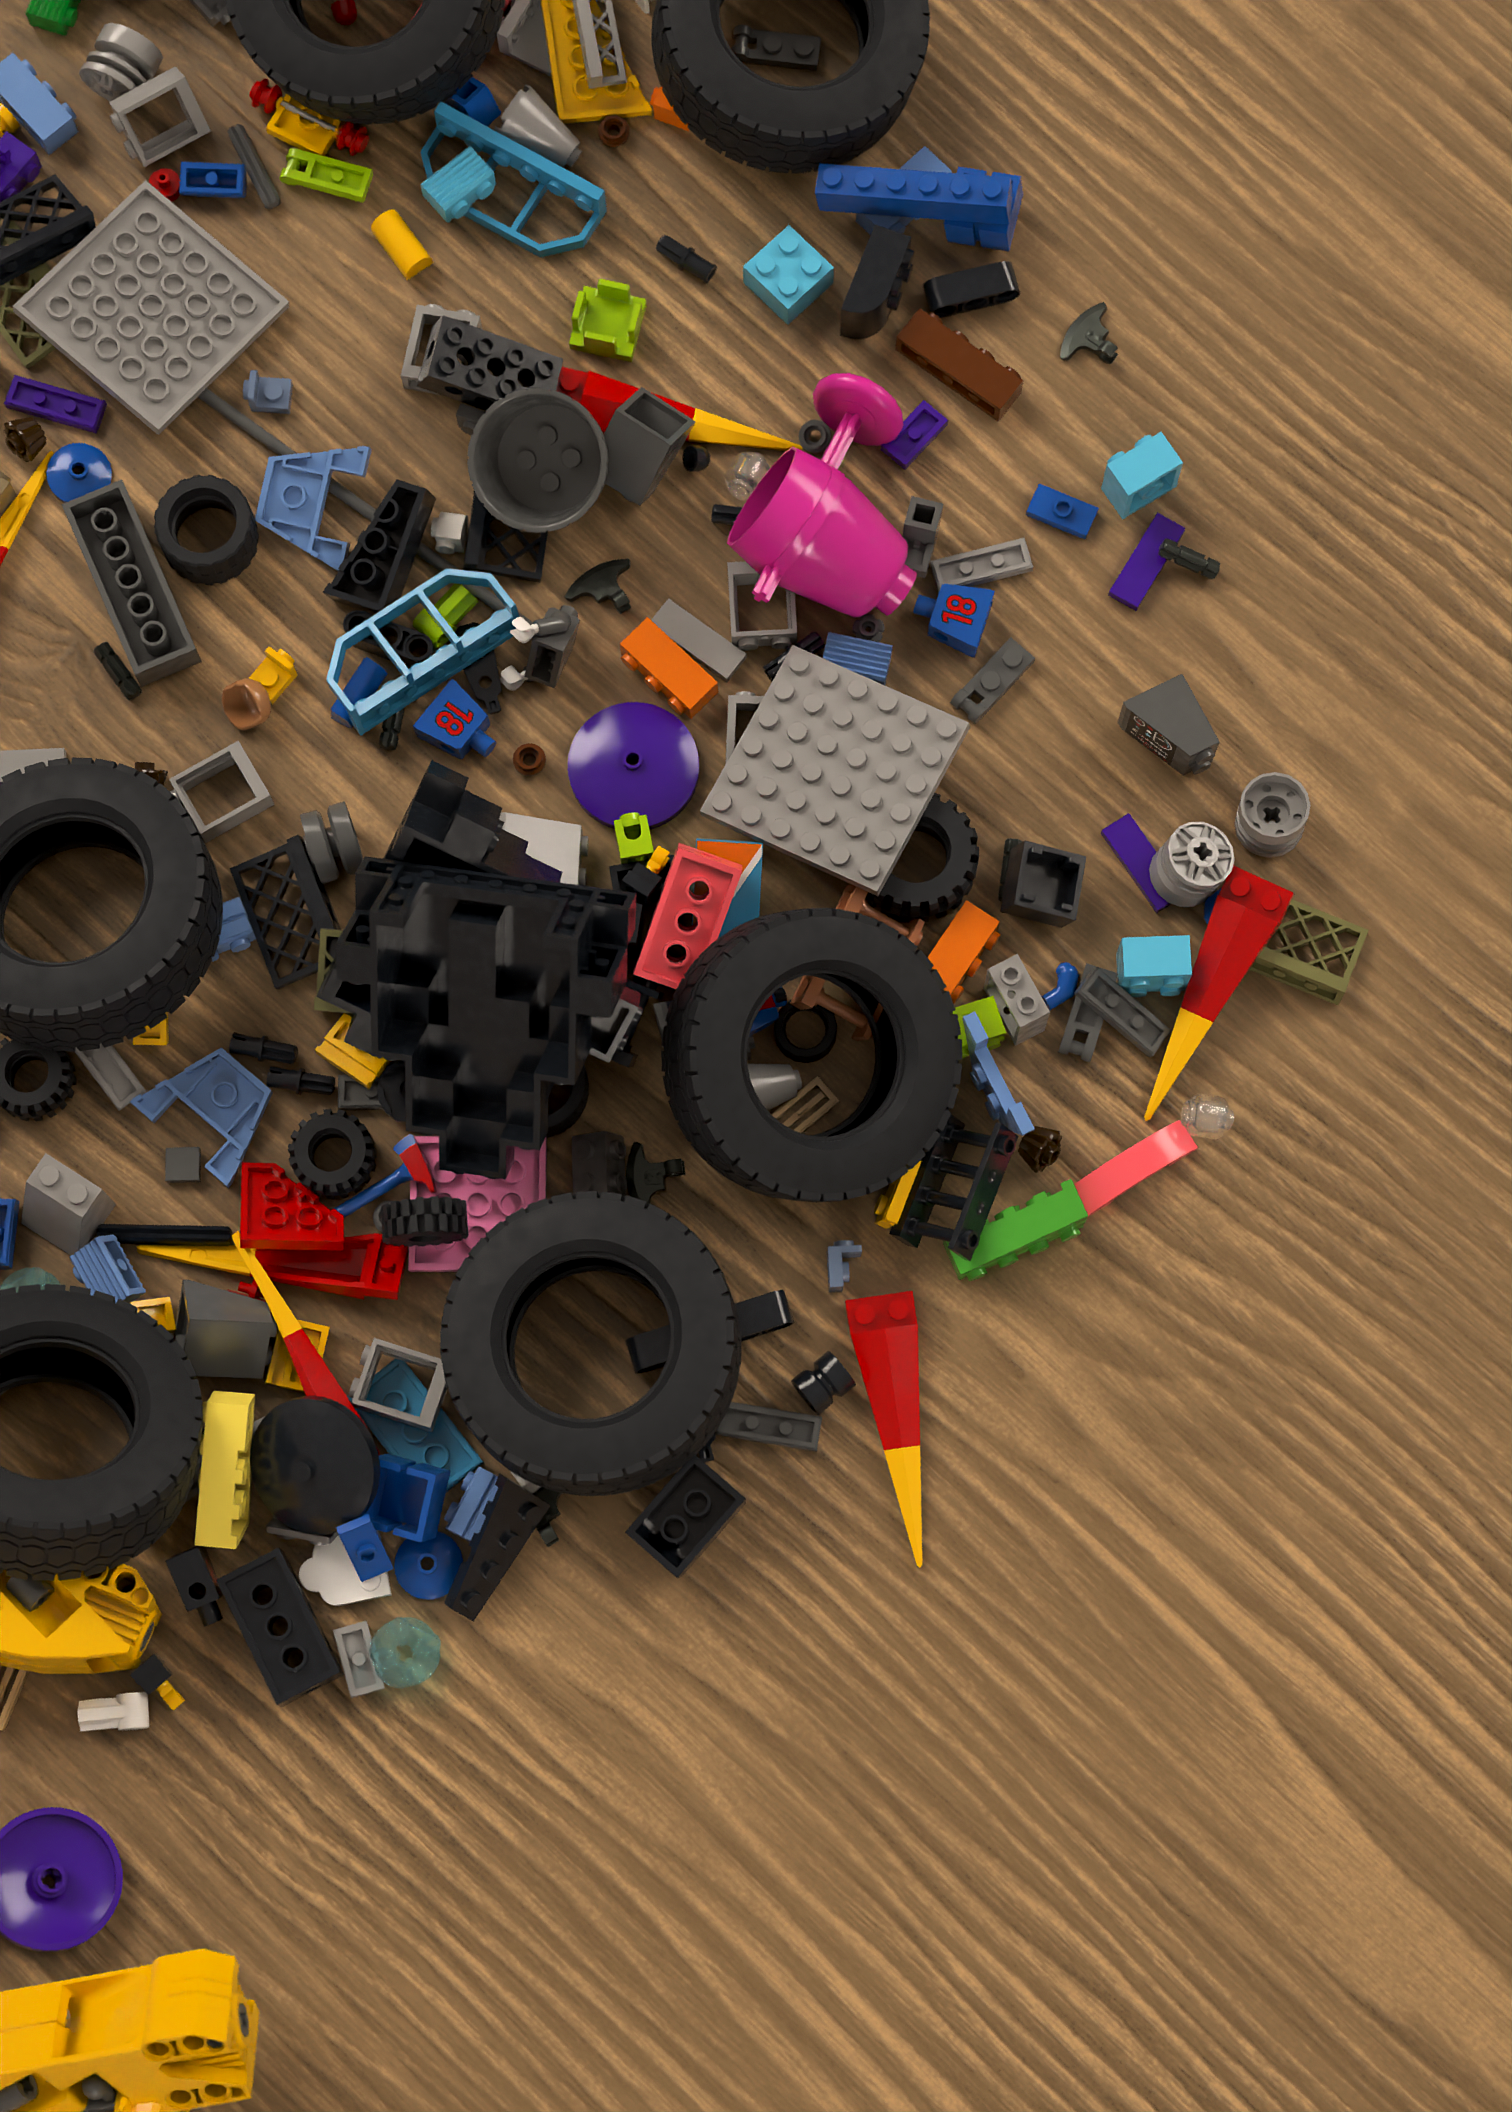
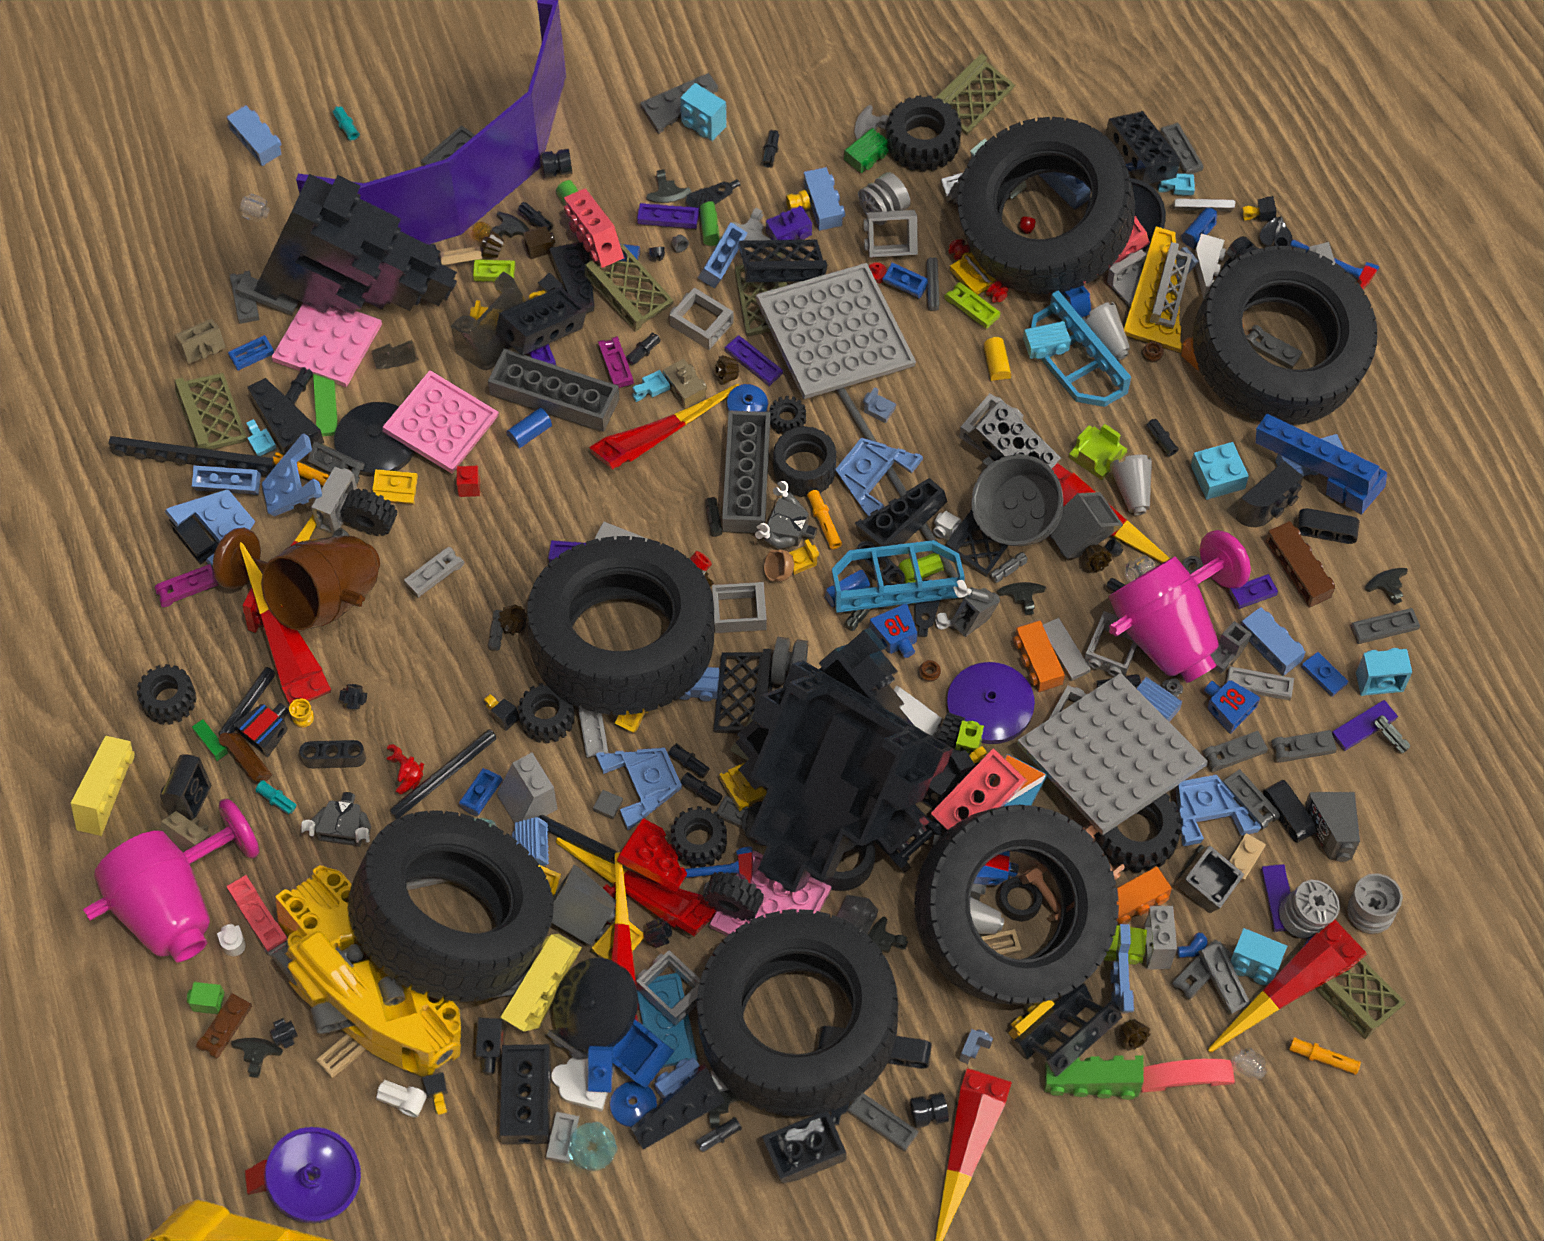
camera: 25 degrees right, 15 degrees down
(133, 749) = (701, 560): none -> red tile
(138, 452) = (783, 406): none -> black tyre
(226, 632) = (787, 521): none -> dark grey torso
(265, 594) = (821, 511): none -> light orange pin
(344, 1316) = (657, 933): none -> black gear
(563, 1552) = (718, 1135): none -> black axle
(565, 554) = (1008, 567): none -> dark grey axle
(601, 840) = (950, 729): none -> black tyre
(679, 485) = (1096, 558): none -> dark brown piece
(680, 348) = (1134, 481): none -> light grey cone
(973, 496) = (1273, 641): none -> medium blue brick
(988, 771) = (1206, 800): none -> medium blue wing
(1044, 741) = (1251, 798): none -> dark grey plate
(1073, 823) = (1247, 854): none -> tan plate
(1081, 629) = (1304, 746): none -> dark grey plate
(1103, 733) = (1291, 810): none -> black beam
(1111, 402) = (1385, 626): none -> dark grey tile
(1284, 1056) = (1325, 1056): none -> light orange pin

